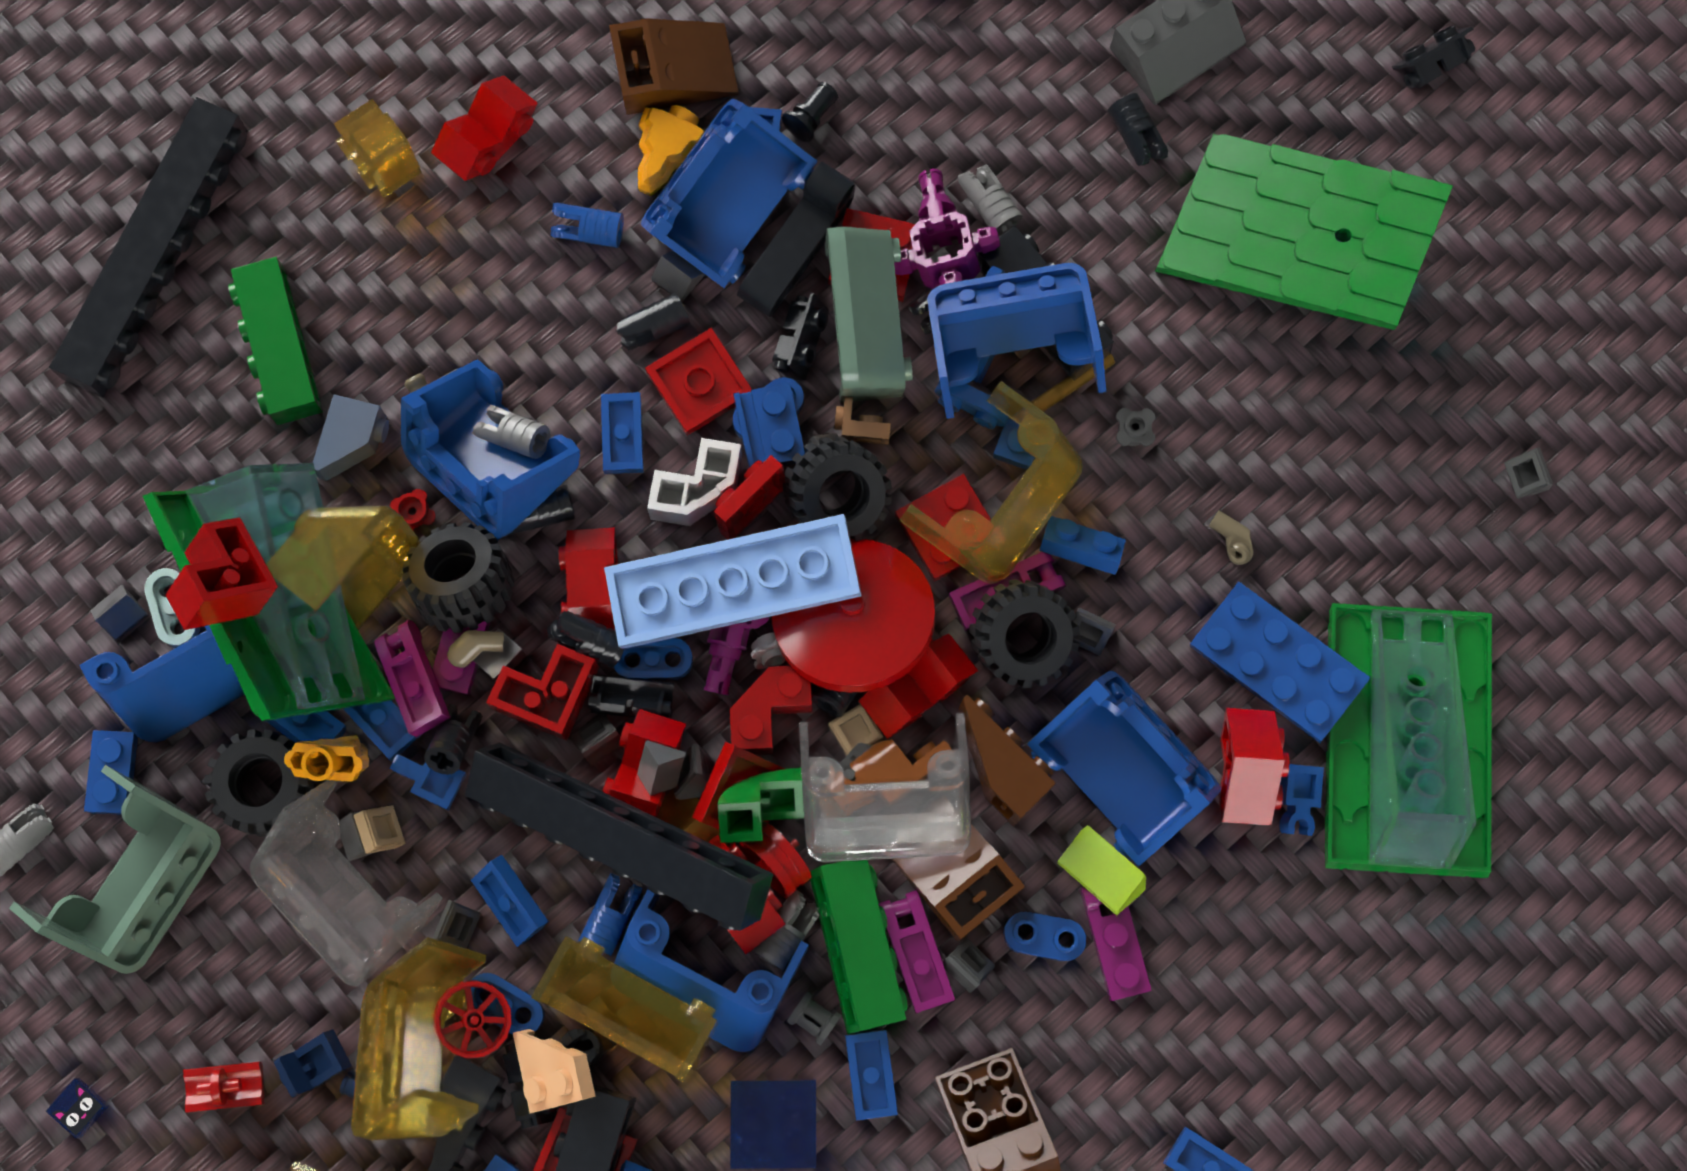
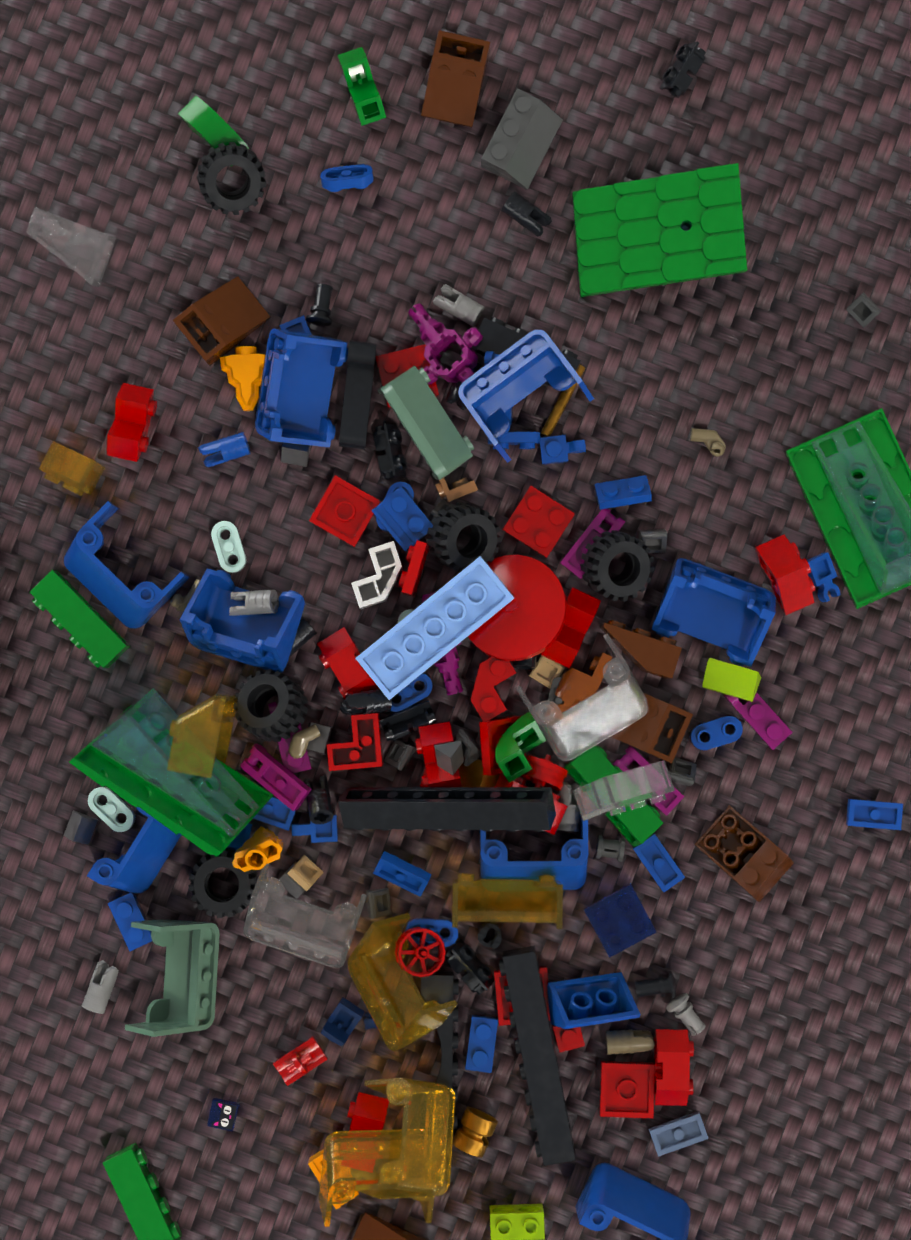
camera: 25 degrees left, 10 degrees up
(223, 578) = (150, 786): red brick -> none
(349, 435) = (156, 653): sand blue slope -> none
(357, 358) = (130, 607): none -> blue windscreen
(416, 500) = (226, 677): red plate -> none
(521, 350) = (228, 547): none -> light aqua plate
(551, 1072) = (482, 958): light nougat wing -> none
(606, 924) = (463, 858): blue hinge -> none
(622, 433) = (316, 566): blue plate -> none
(652, 322) = (297, 489): black hinge -> none
(766, 652) = (471, 653): white plate -> none
(874, 939) = (624, 790): none -> clear wedge
(996, 546) = (576, 524): clear yellow windscreen -> none
(1128, 436) = (610, 401): dark grey plate -> none
(1279, 662) = (772, 502): blue plate -> none

